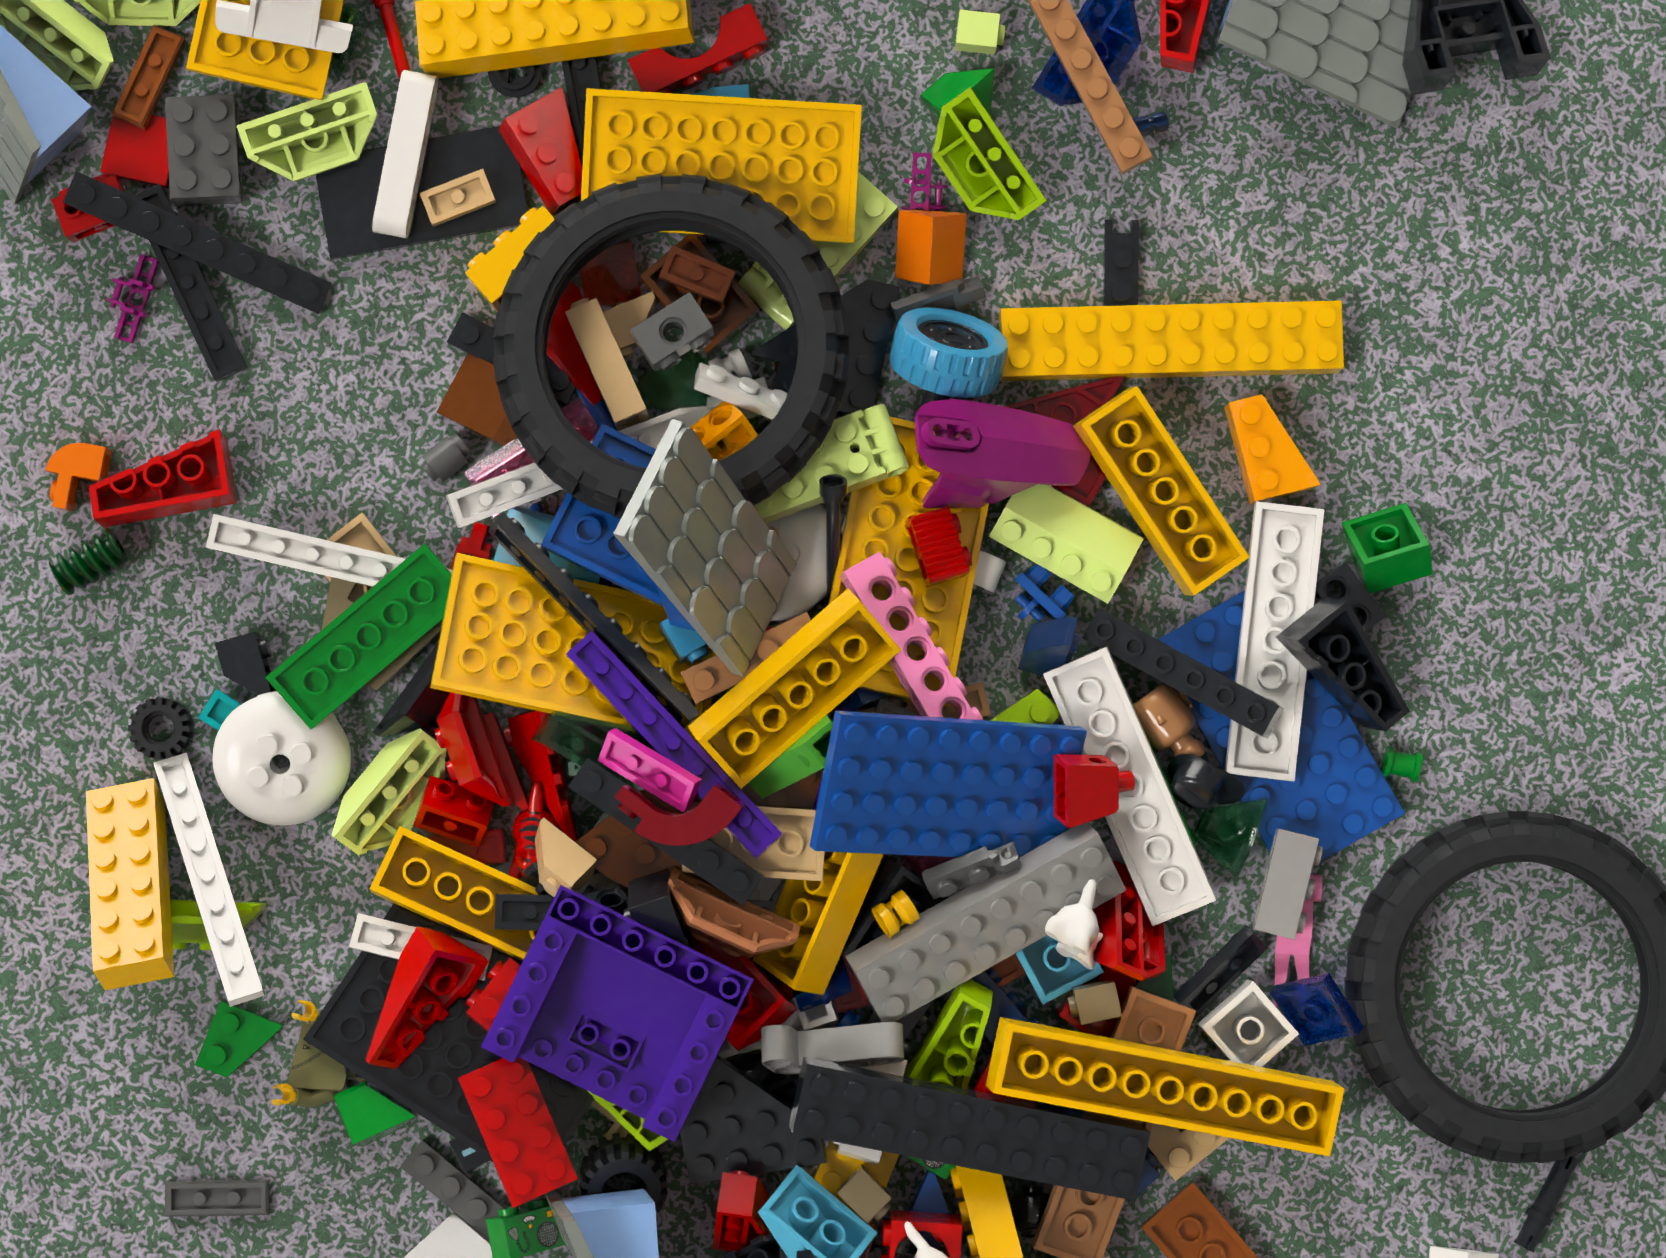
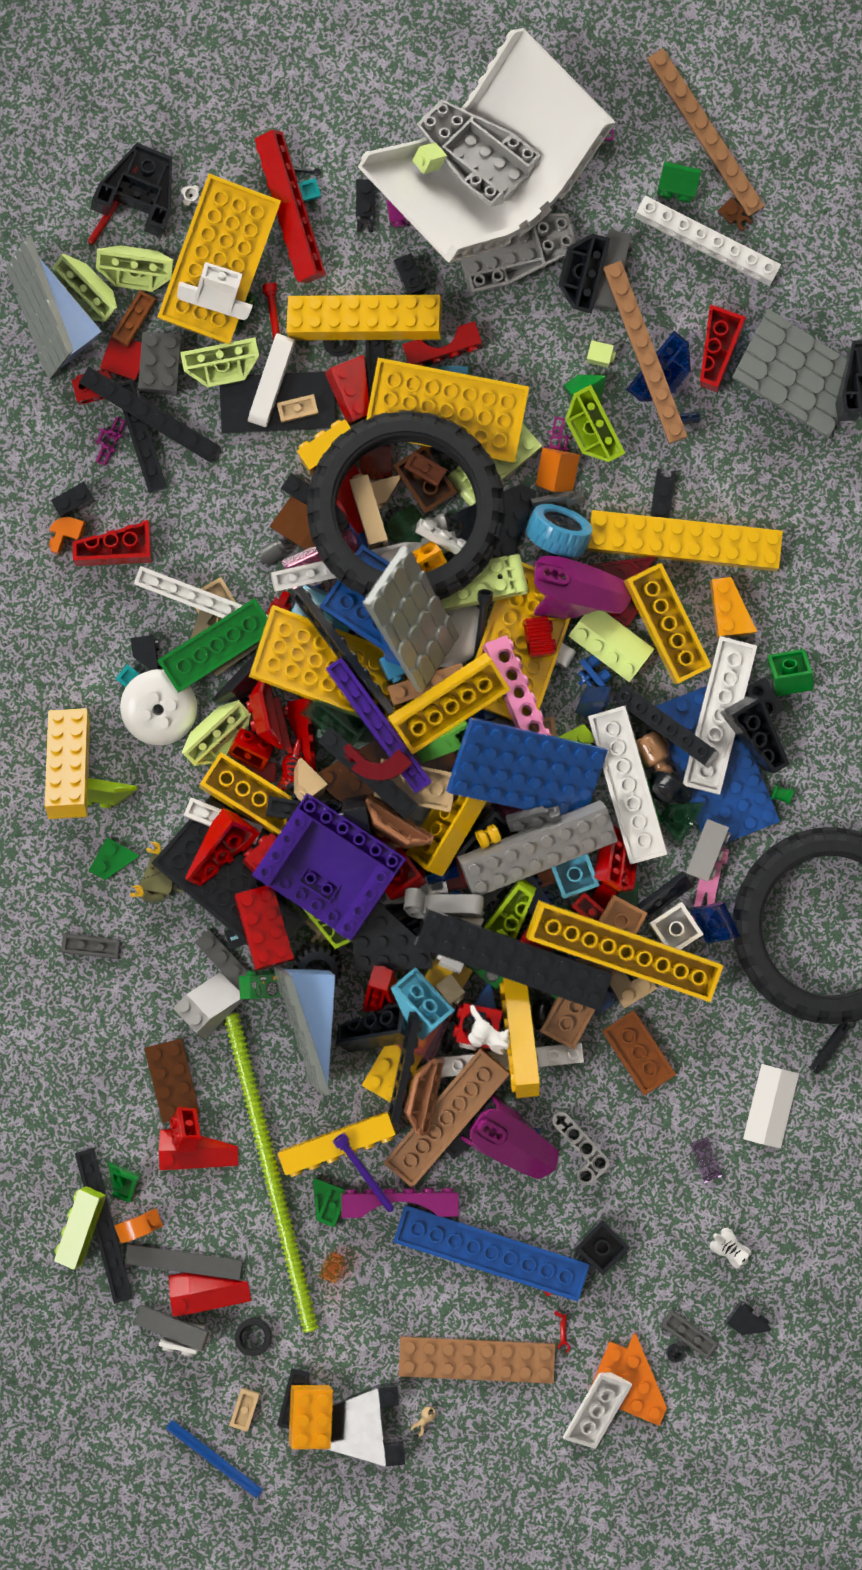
camera: 15 degrees right, 0 degrees up
(82, 412) = (73, 500): none -> black brick
(88, 562) = (65, 584): dark green piece -> none
(140, 728) = (82, 682): black tyre -> none
(208, 880) = (111, 767): white plate -> none
(369, 1114) = (182, 910): green slope -> none
(649, 770) = (363, 737): dark pink plate -> none
(681, 314) = (413, 489): dark grey brick -> none
(1077, 928) = (587, 858): white animal -> none
(1087, 787) = (603, 781): red torso -> none
(1094, 1002) = (592, 900): dark tan brick -> none

